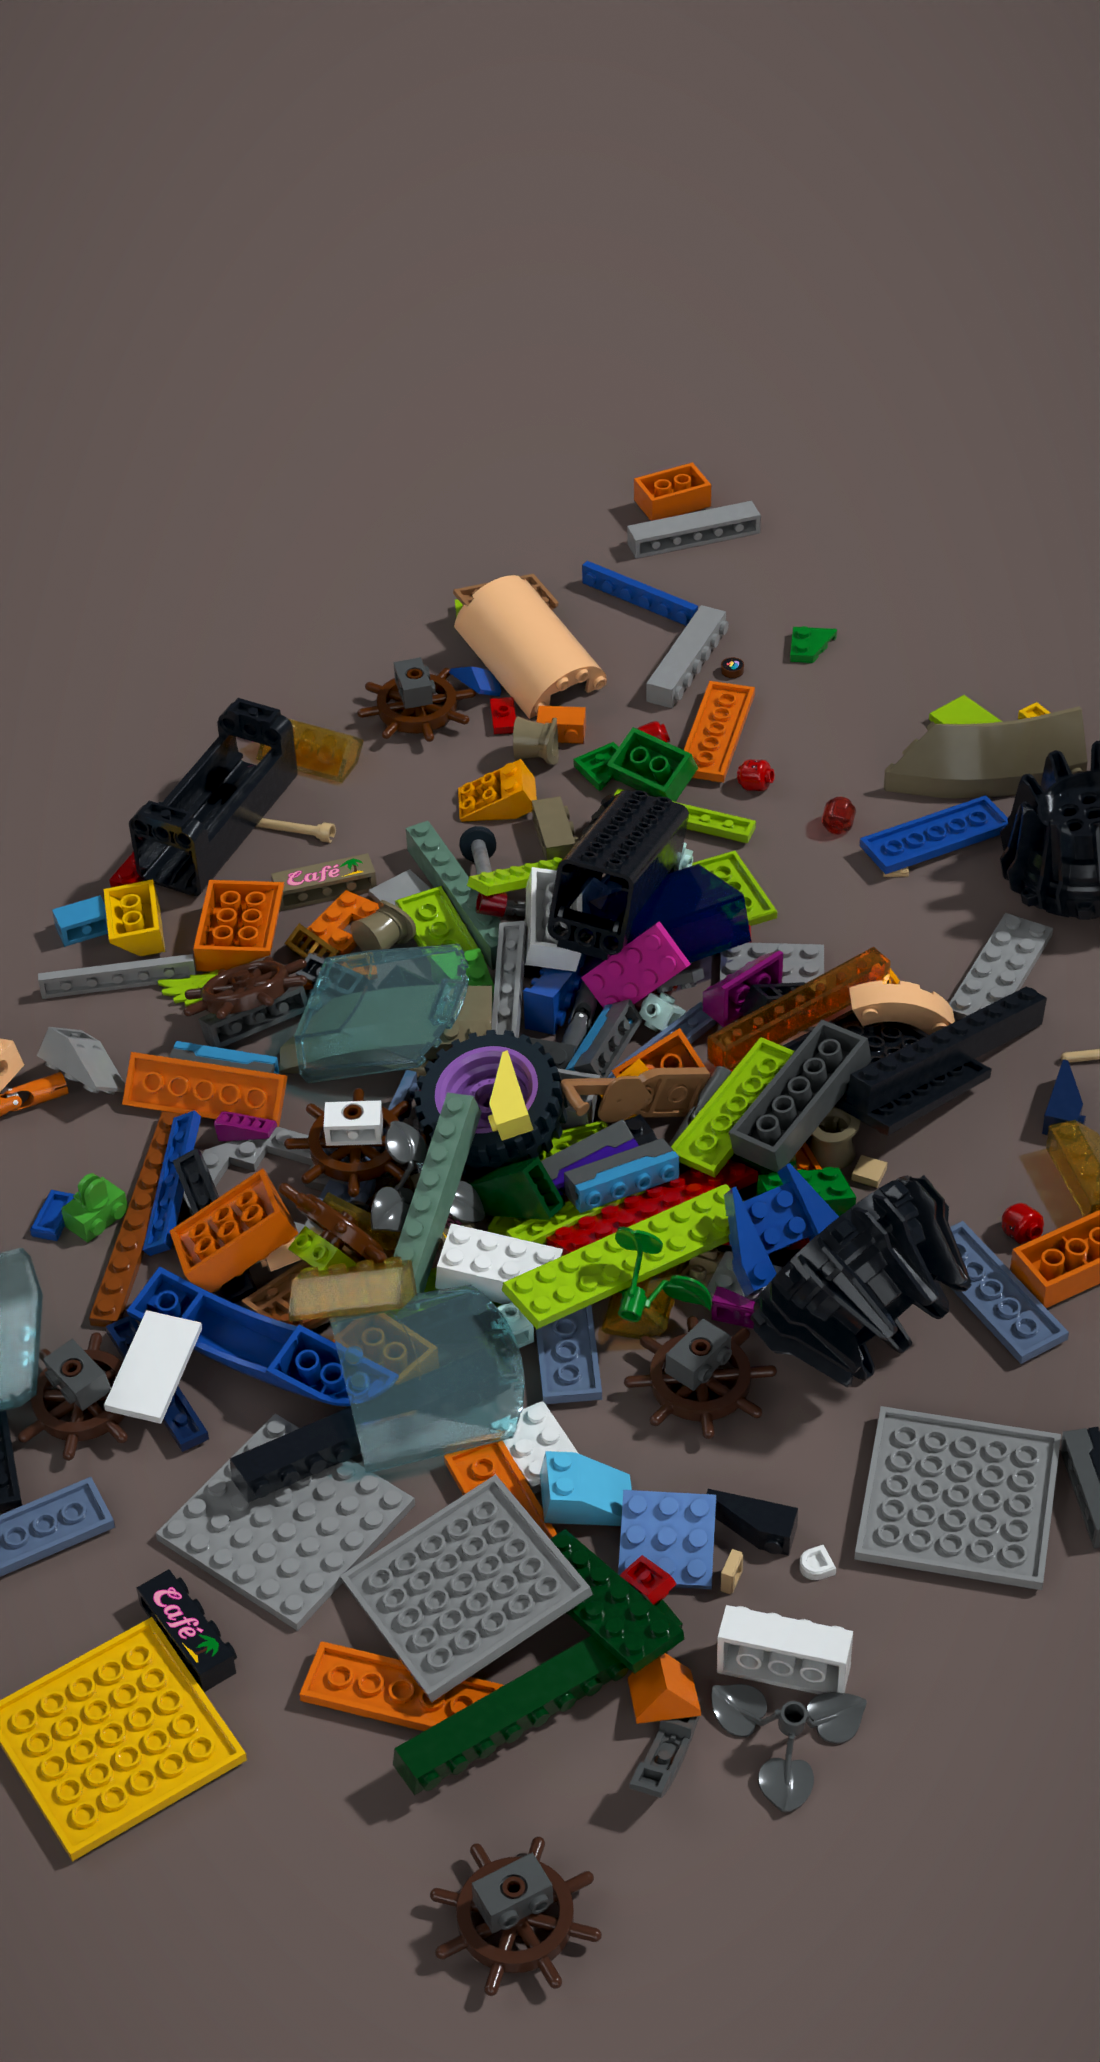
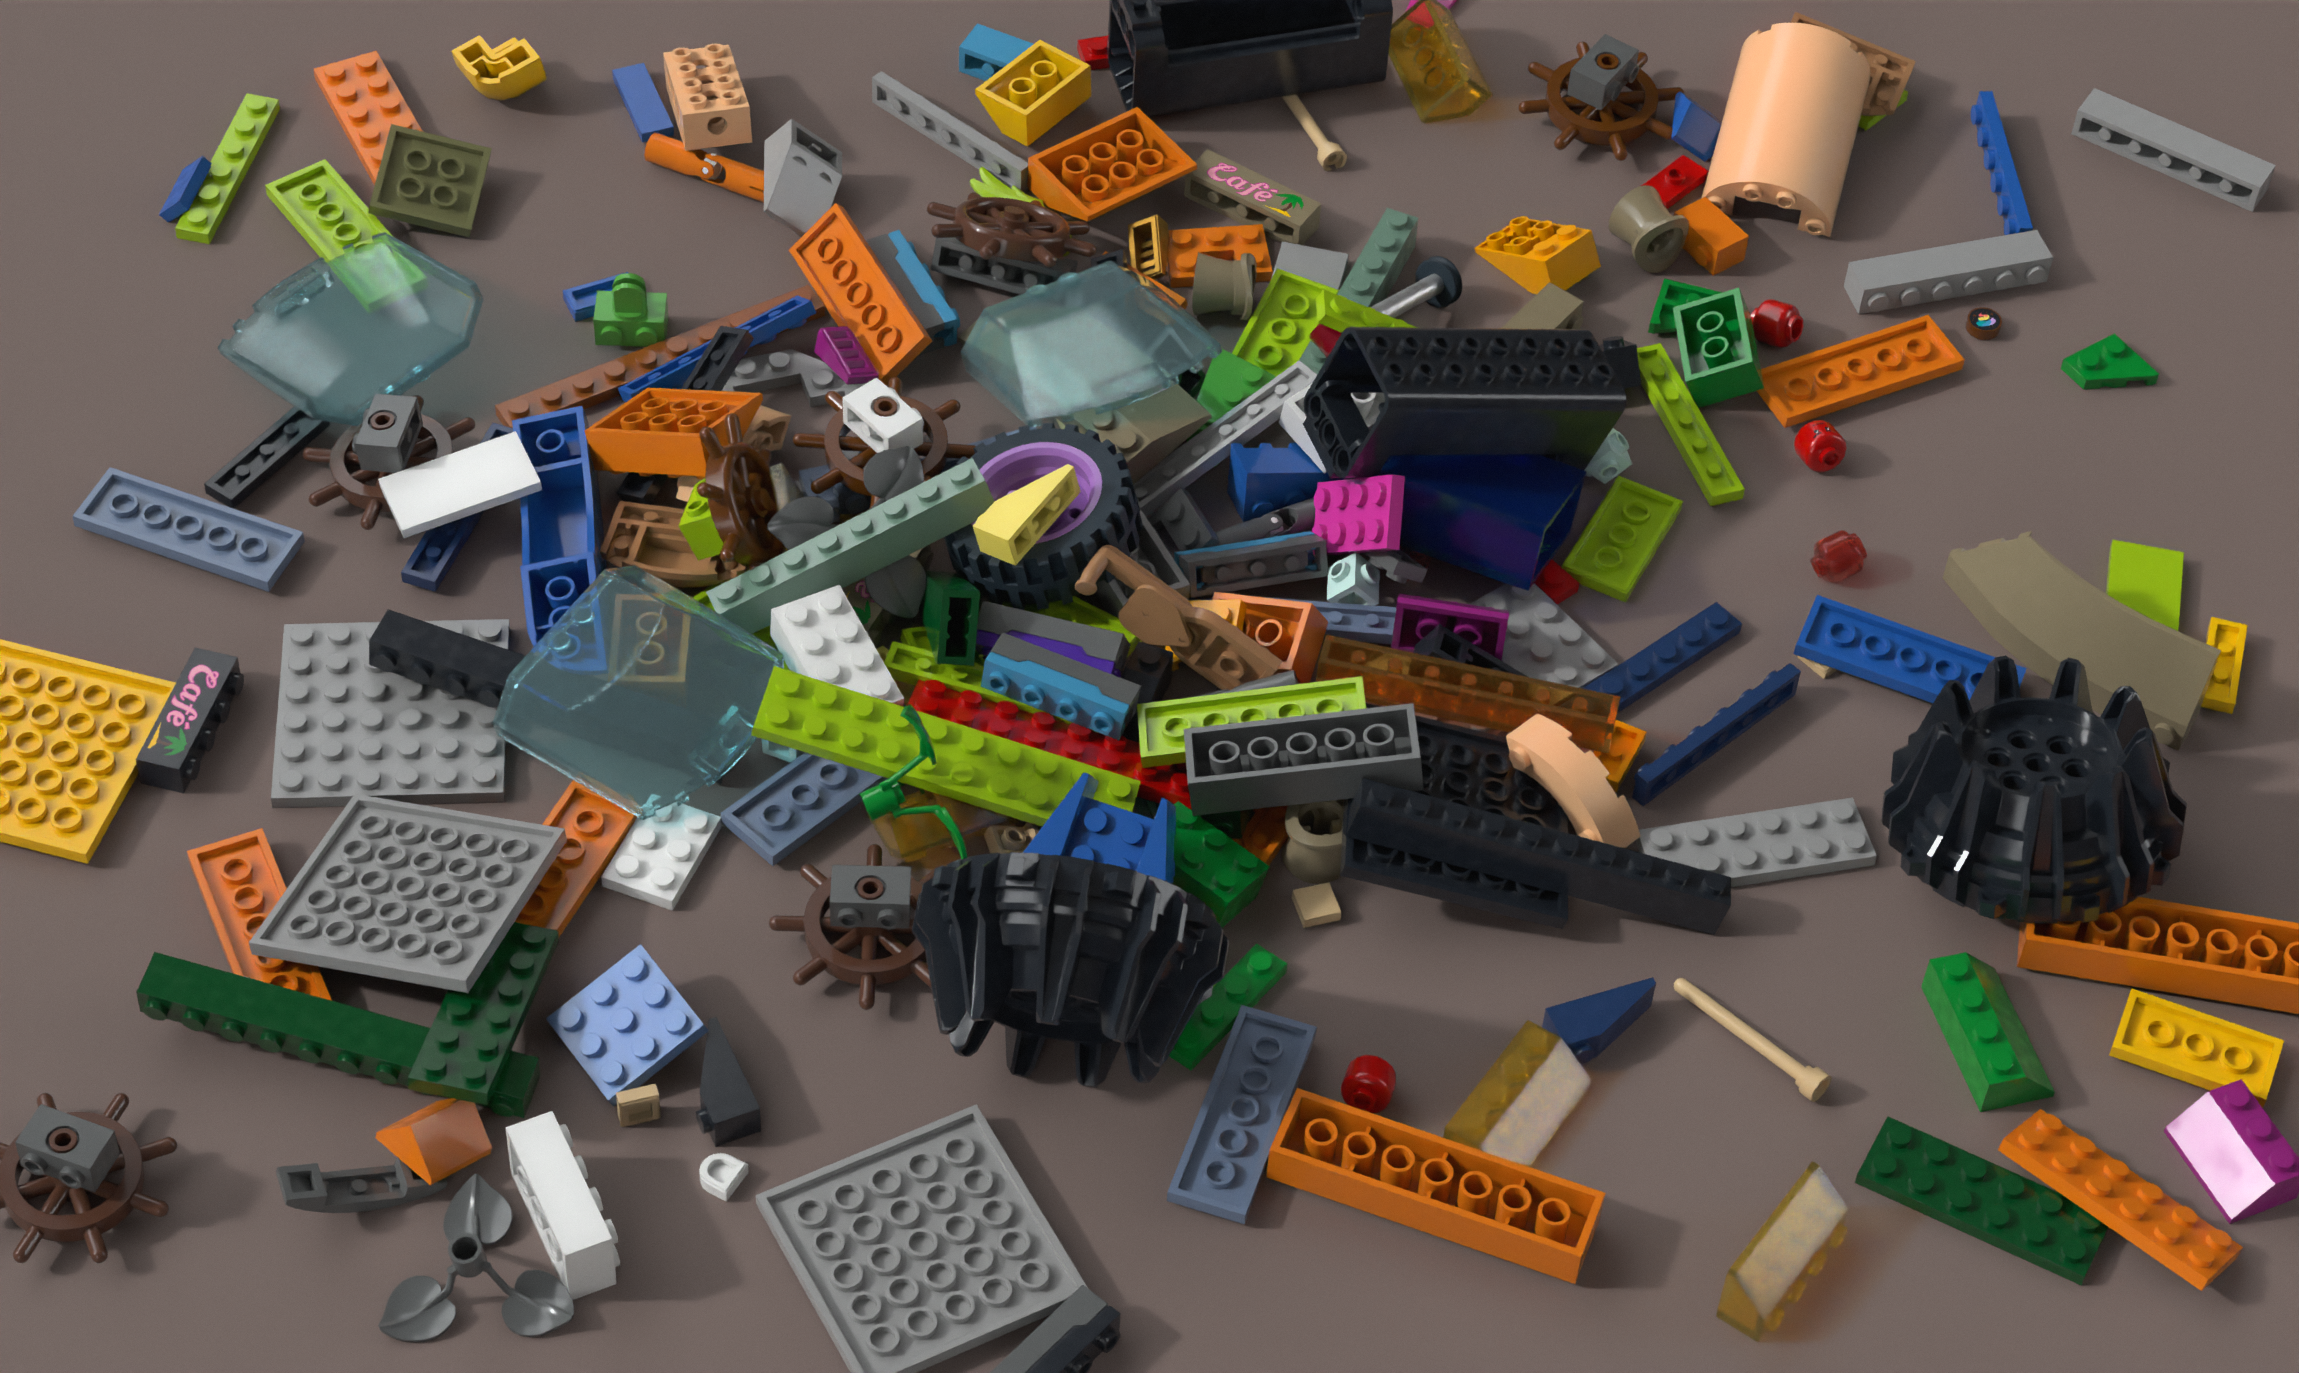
camera: 45 degrees right, 5 degrees up
(352, 1289) = (669, 562): clear yellow slope -> none
(581, 1490) = (621, 908): medium azure slope -> none
(648, 1579) = (544, 1034): red plate -> none
(672, 492) = (2206, 91): orange brick -> none
(834, 923) = (1668, 655): none -> dark blue plate
(910, 928) = (1716, 734): none -> dark blue plate

